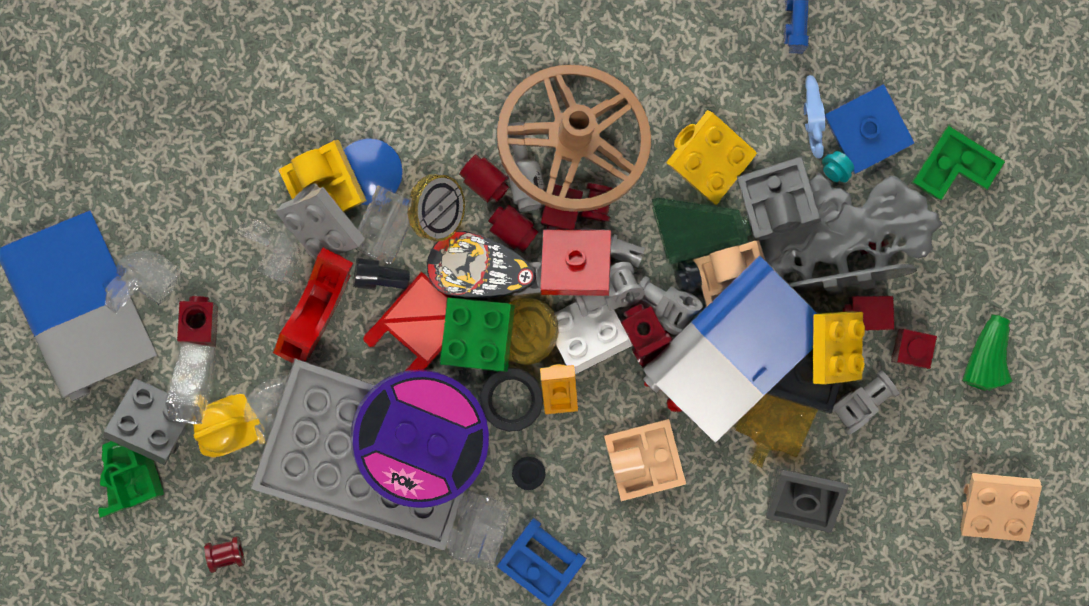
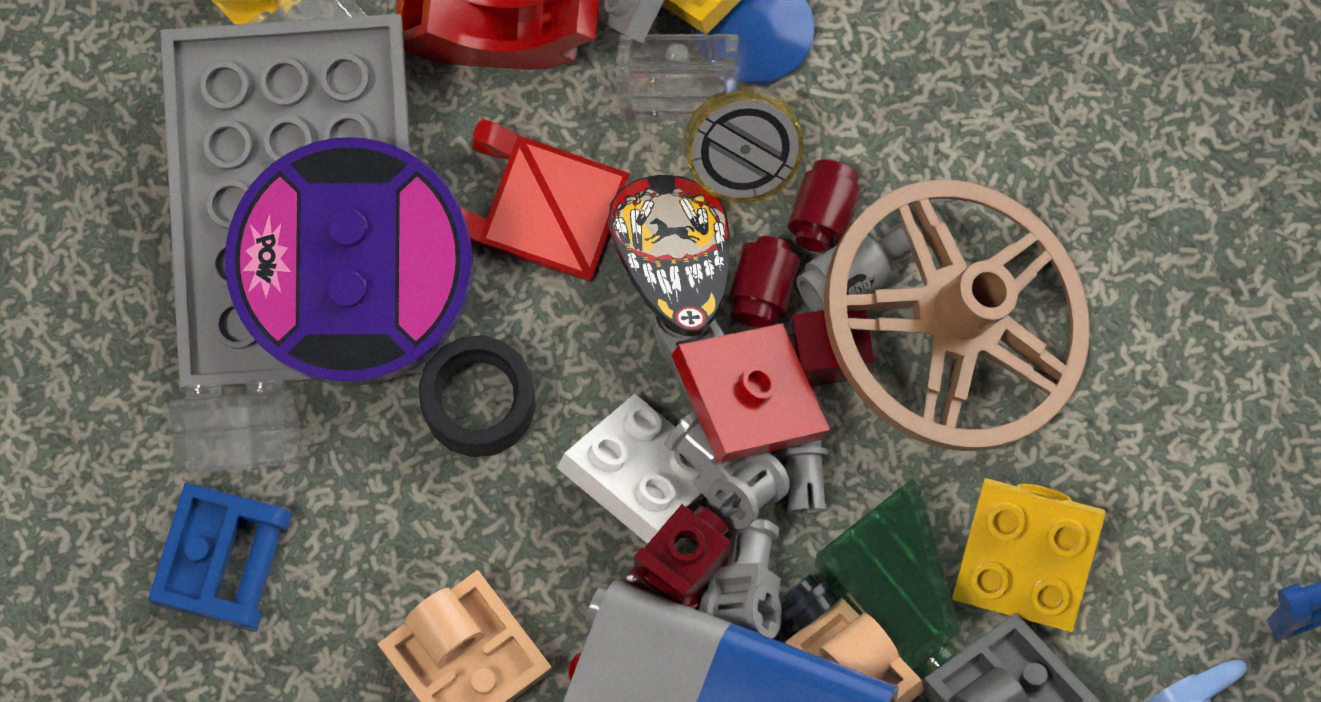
camera: 65 degrees right, 15 degrees down
(224, 554) = (41, 52): dark red bush -> none
(369, 274) = (589, 91): black piece -> none
(477, 334) = (562, 293): green plate -> none
(528, 473) = (364, 476): black plate -> none
(533, 331) = (602, 371): clear yellow tile -> none
(559, 389) = (525, 457): light orange plate -> none
(599, 214) = (851, 408): dark red bush -> none

